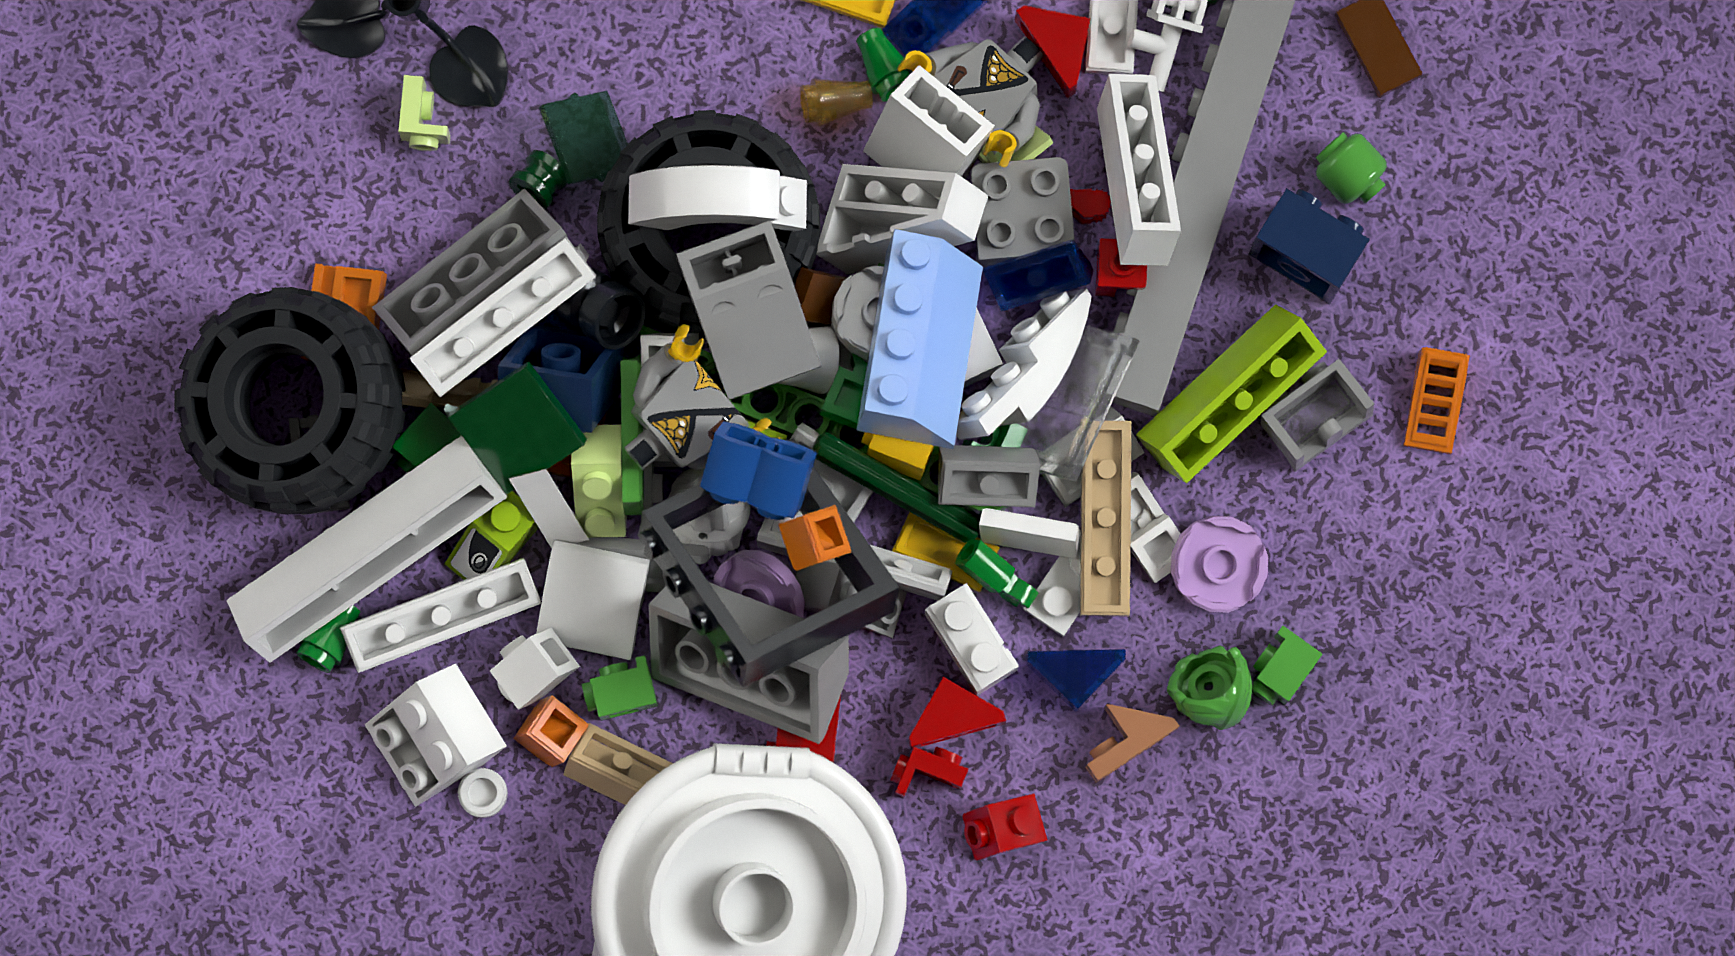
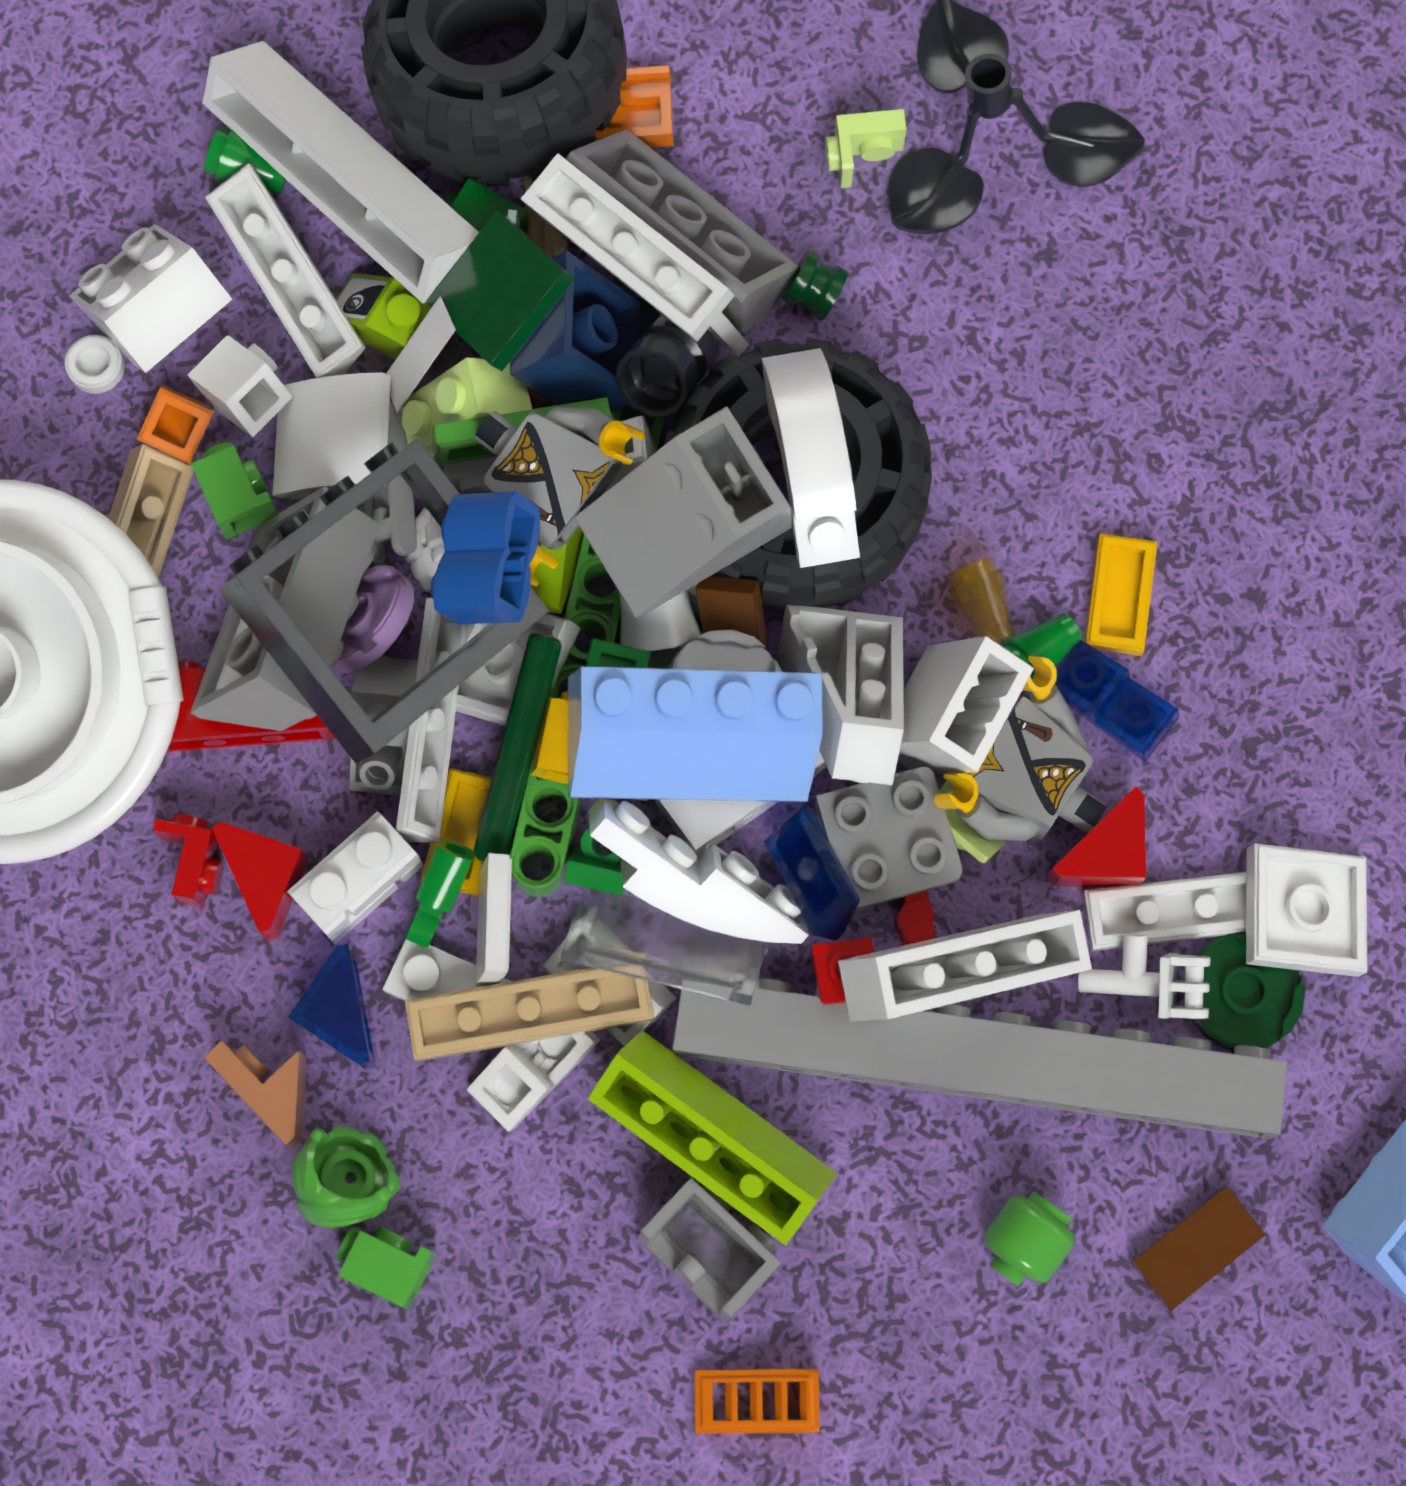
camera: 80 degrees right, 5 degrees down
(584, 135) = (880, 322): clear green piece -> none
(814, 538) = (417, 642): orange slope -> none
(988, 476) = (551, 854): light grey slope -> none
(1004, 826) = (139, 961): red bracket -> none
(1219, 564) = (502, 1163): lavender tile -> none
(1309, 244) = (918, 1198): dark blue brick -> none

